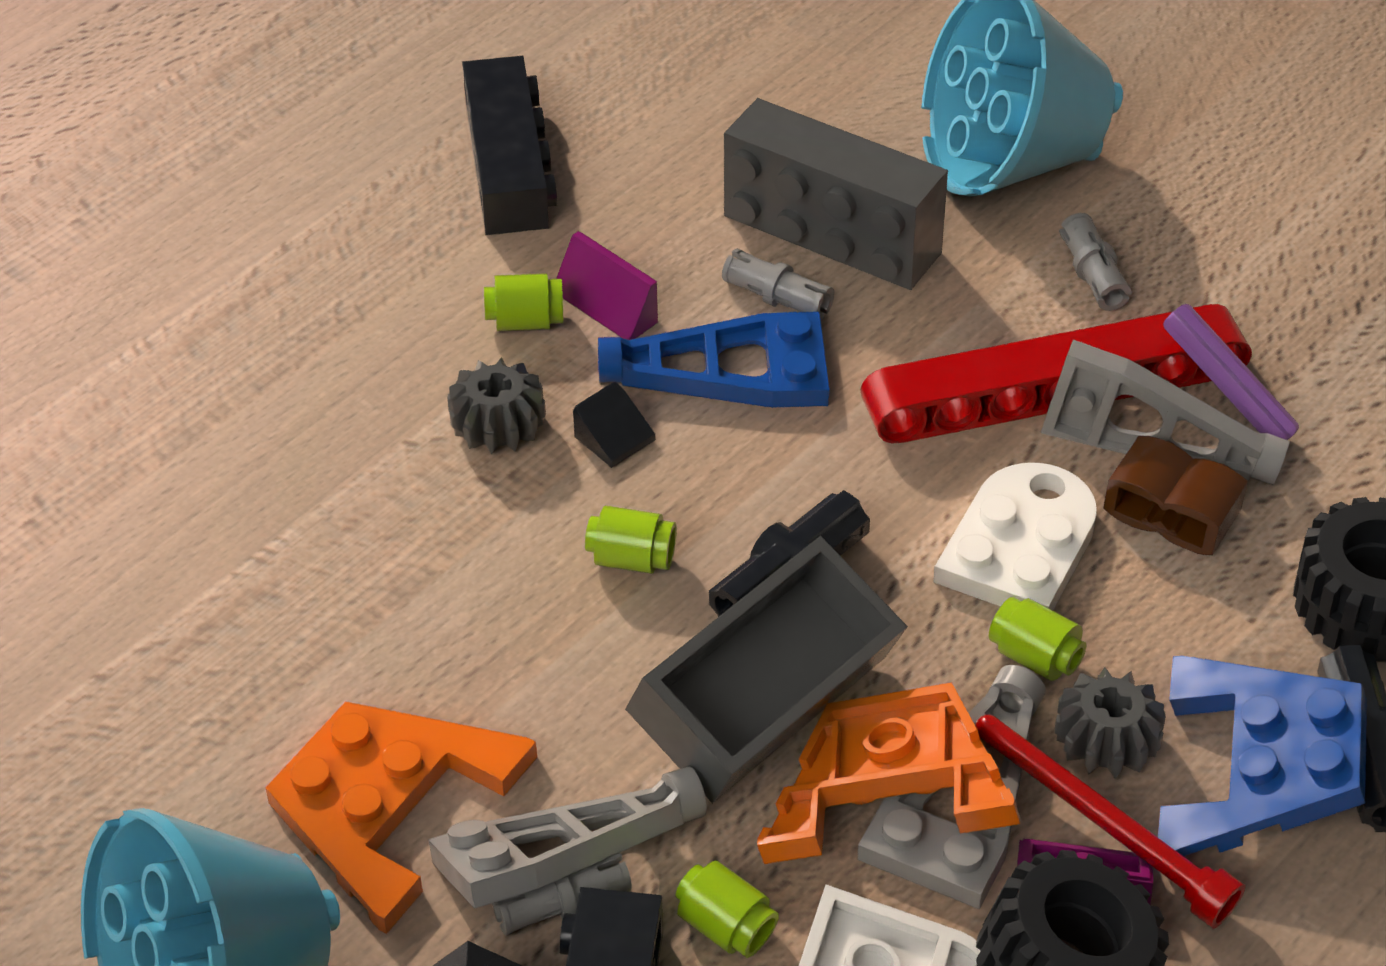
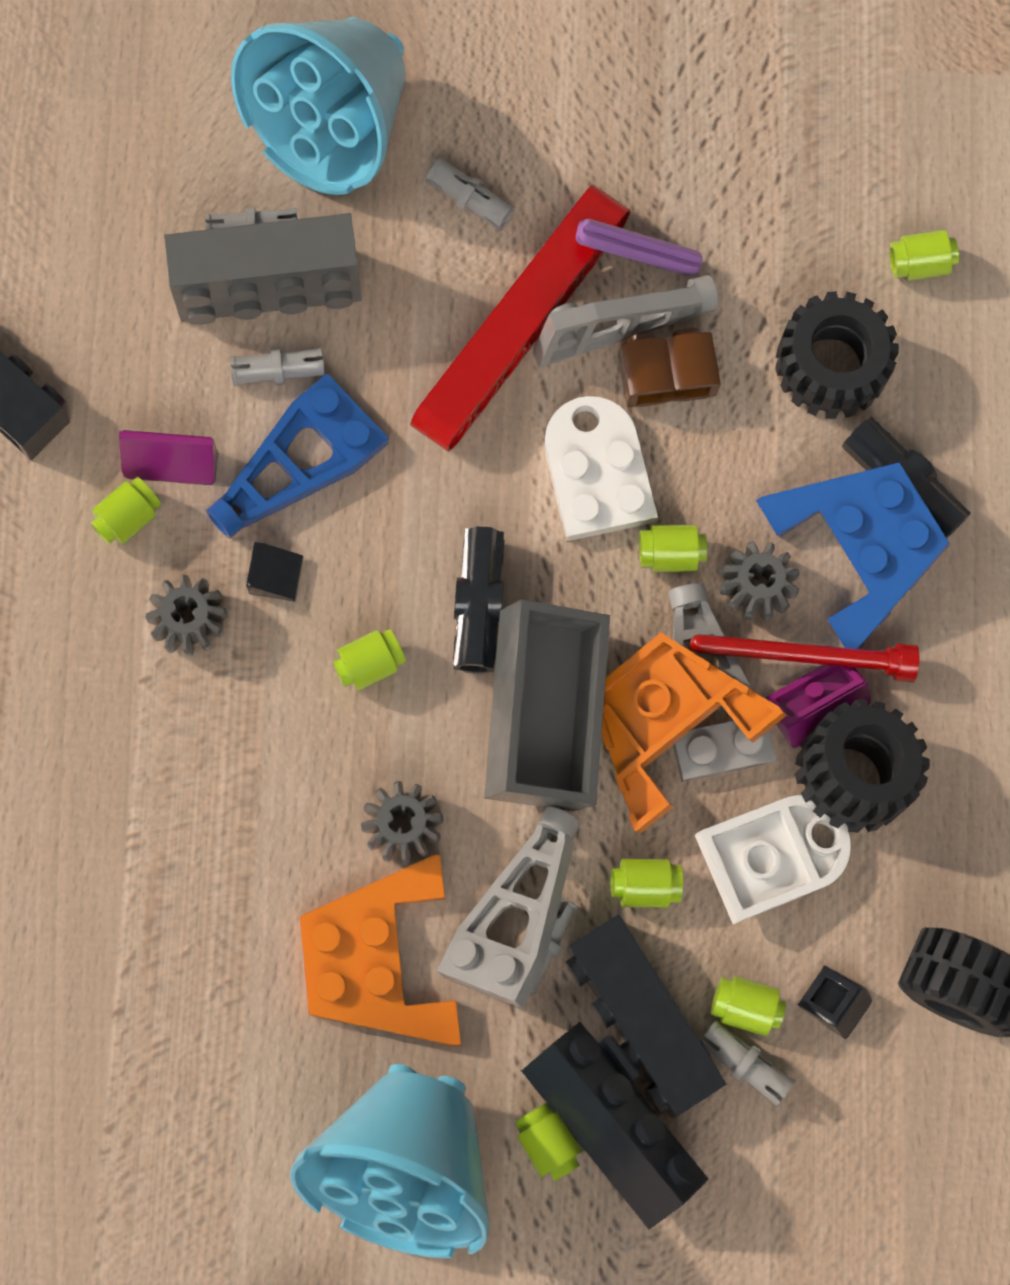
camera: 45 degrees left, 30 degrees up
(525, 687) = (419, 823): none -> dark grey gear

